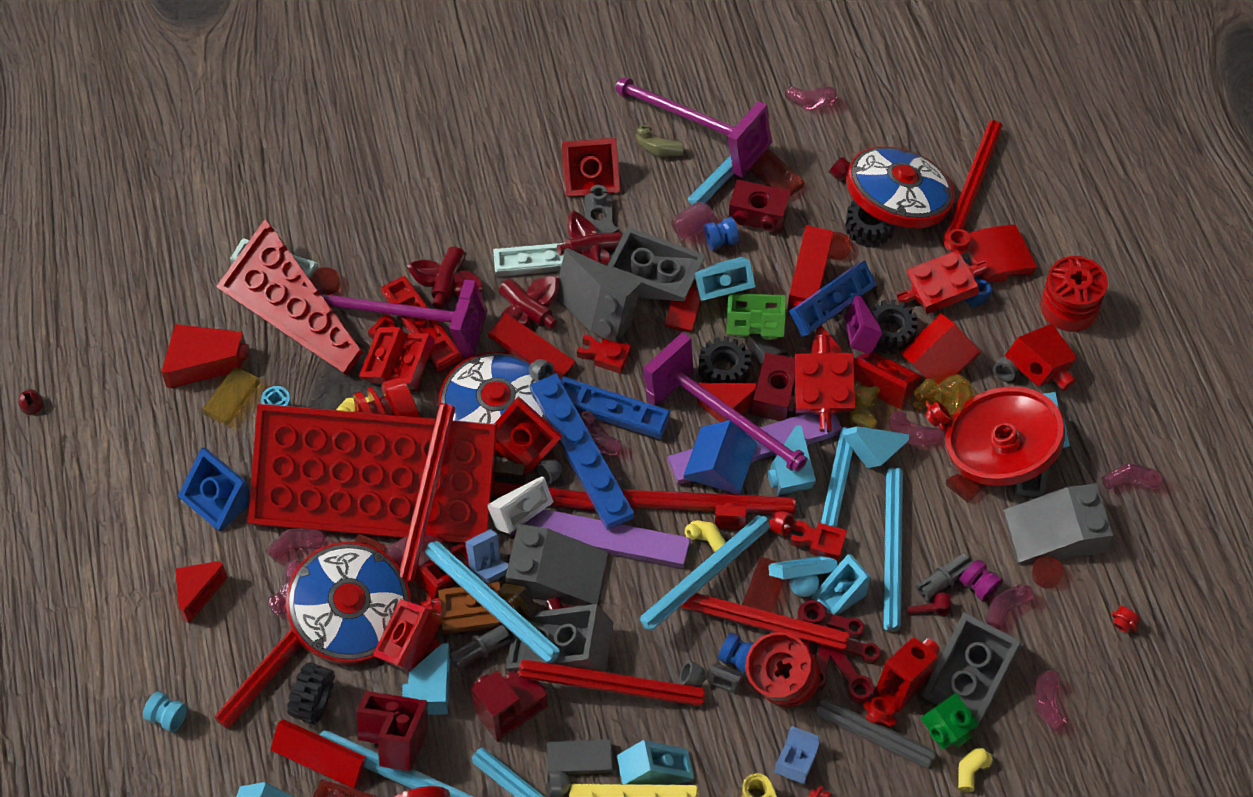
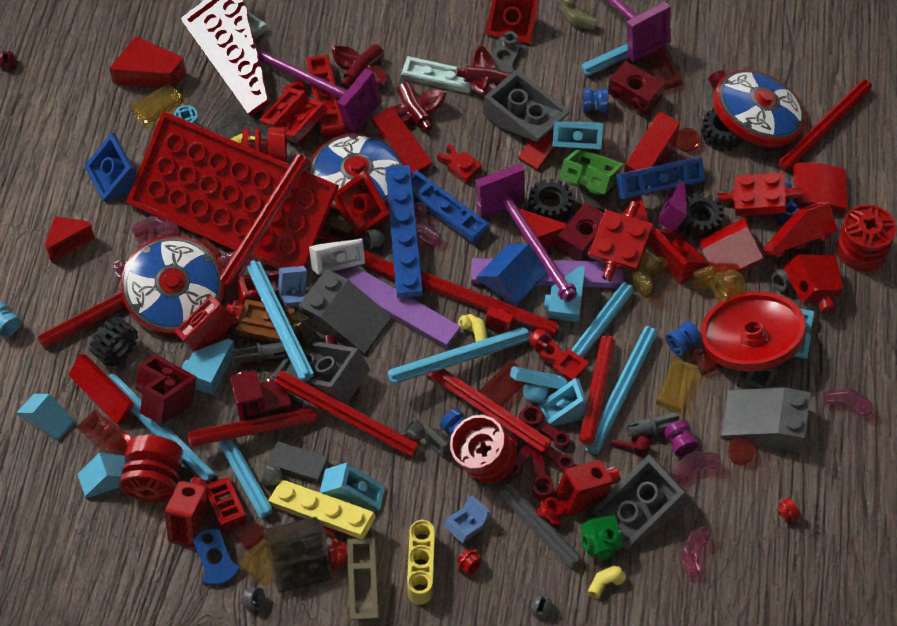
camera: 20 degrees right, 0 degrees up
(326, 279) = (267, 40): clear red tile -> none
(512, 735) = (252, 426): none -> red axle
(540, 369) = (402, 156): dark grey hinge -> none
(597, 295) = (471, 116): dark grey slope -> none
(692, 220) = (574, 82): clear pink brick -> none
(813, 98) = (721, 17): clear pink arm -> none
(870, 558) = (597, 390): none -> red axle
(874, 445) = (641, 302): medium azure slope -> none
(917, 434) = (680, 305): clear pink arm -> none
(933, 469) = (684, 337): none -> blue wheel
(938, 414) = (706, 297): red plate -> none
(948, 523) = (676, 385): none -> clear yellow tile
(958, 240) = (787, 165): red plate -> none
(1003, 303) = (805, 225): none -> red slope

